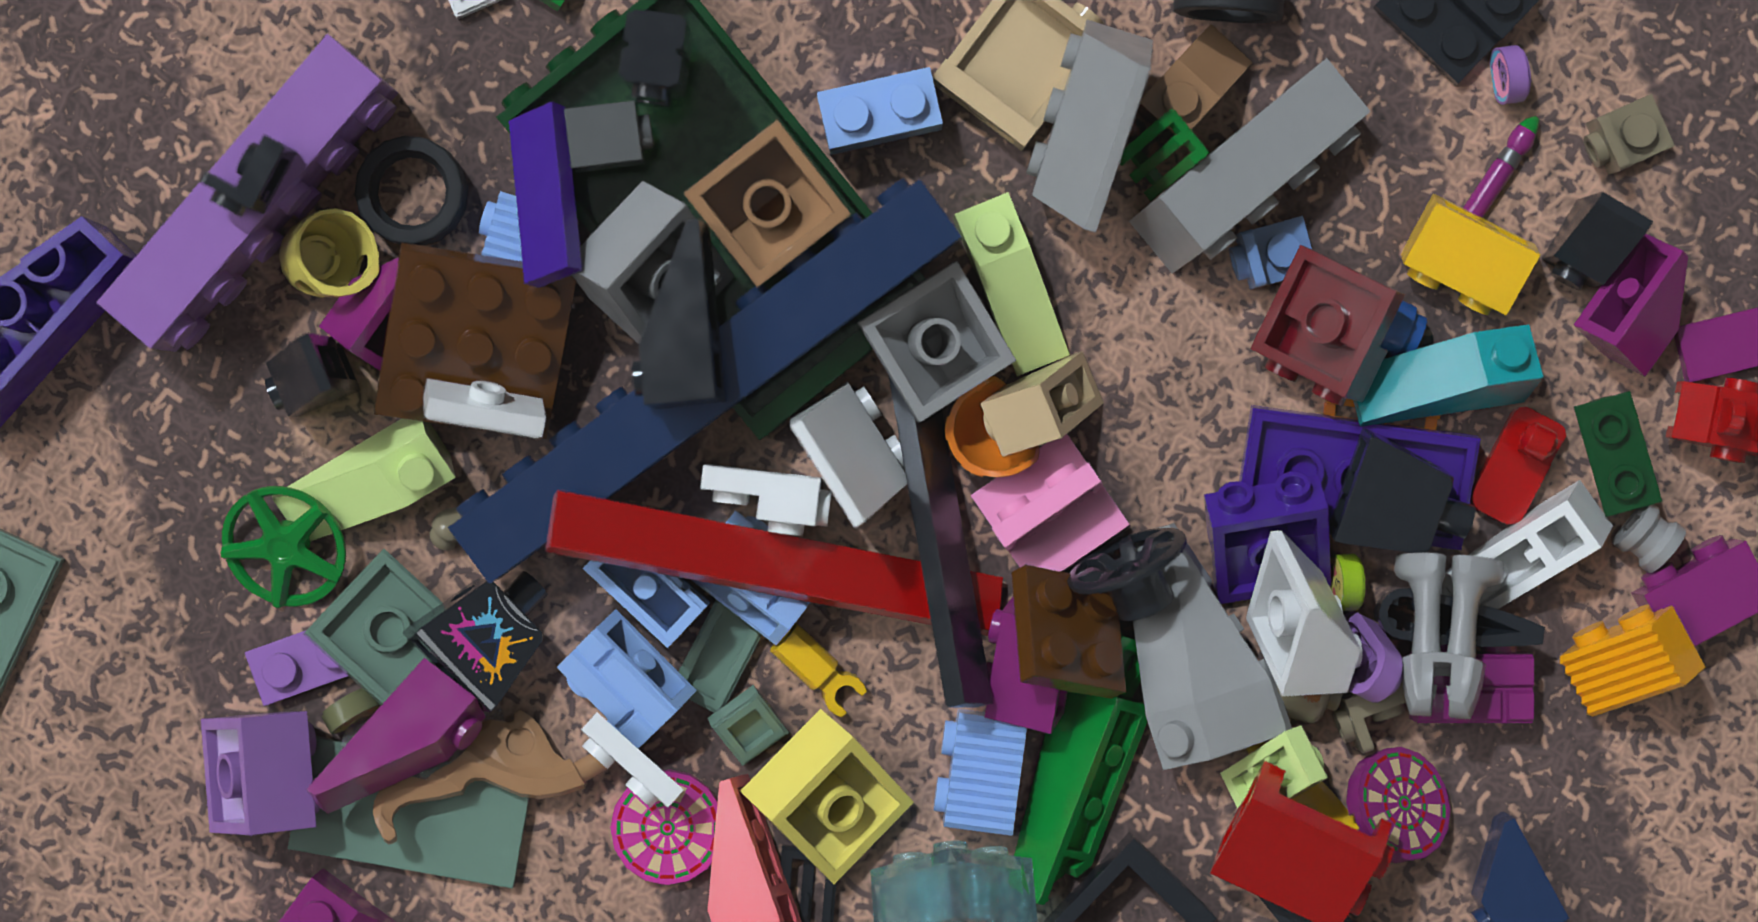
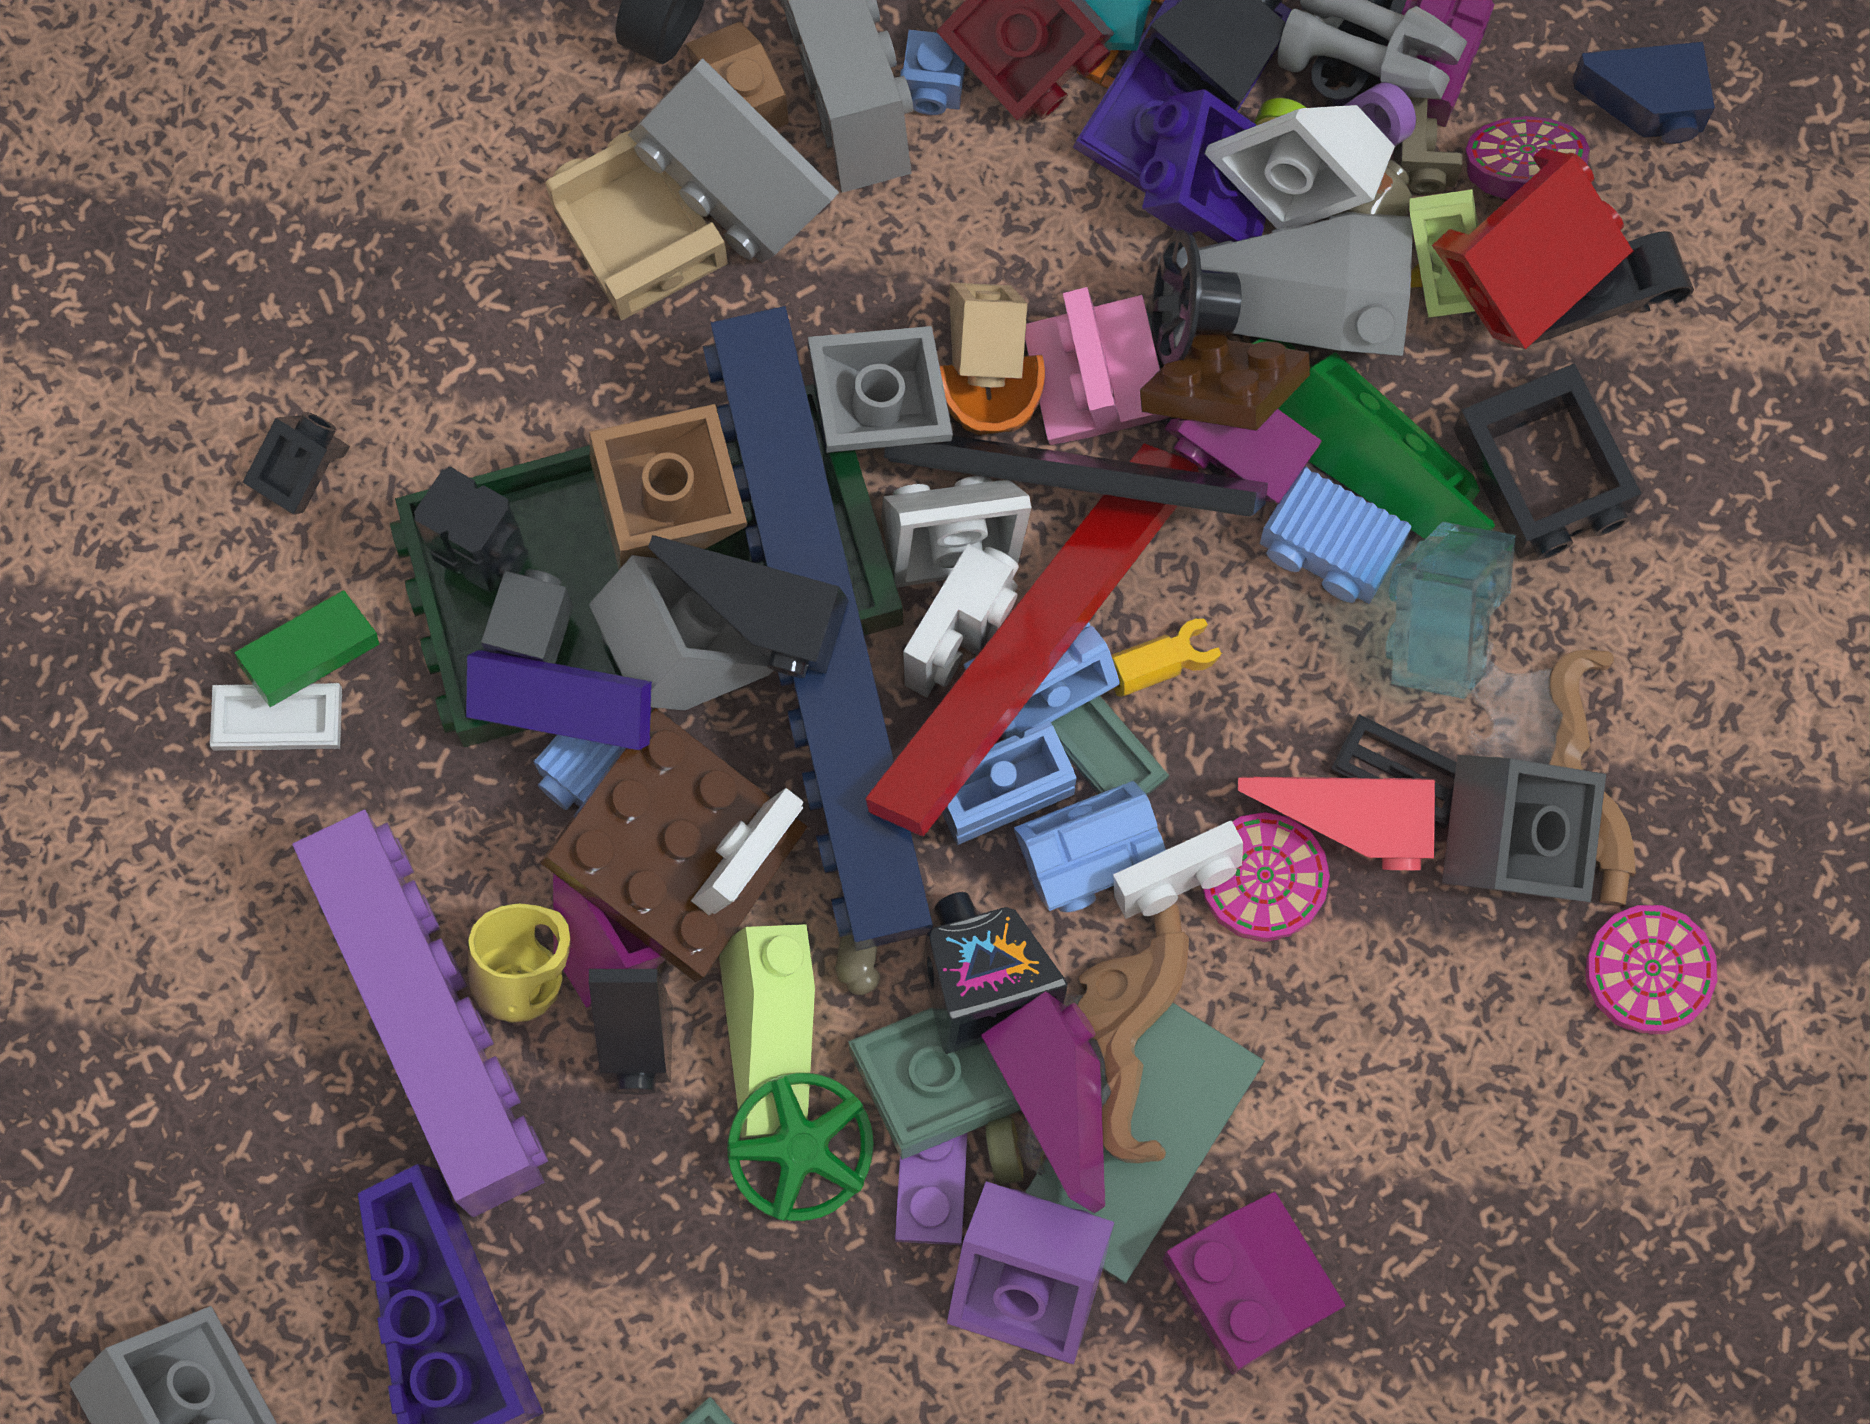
camera: 65 degrees left, 15 degrees down
(261, 174) = (396, 959): black bracket -> none
(386, 155) = (462, 822): black tyre -> none
(748, 725) = (1191, 750): sand green tile -> none
(827, 796) = (1295, 694): light yellow slope -> none
(880, 110) = (625, 362): light blue brick -> none
(1011, 283) = (843, 304): yellowish green slope -> none
(1147, 166) = (783, 79): green tile -> none

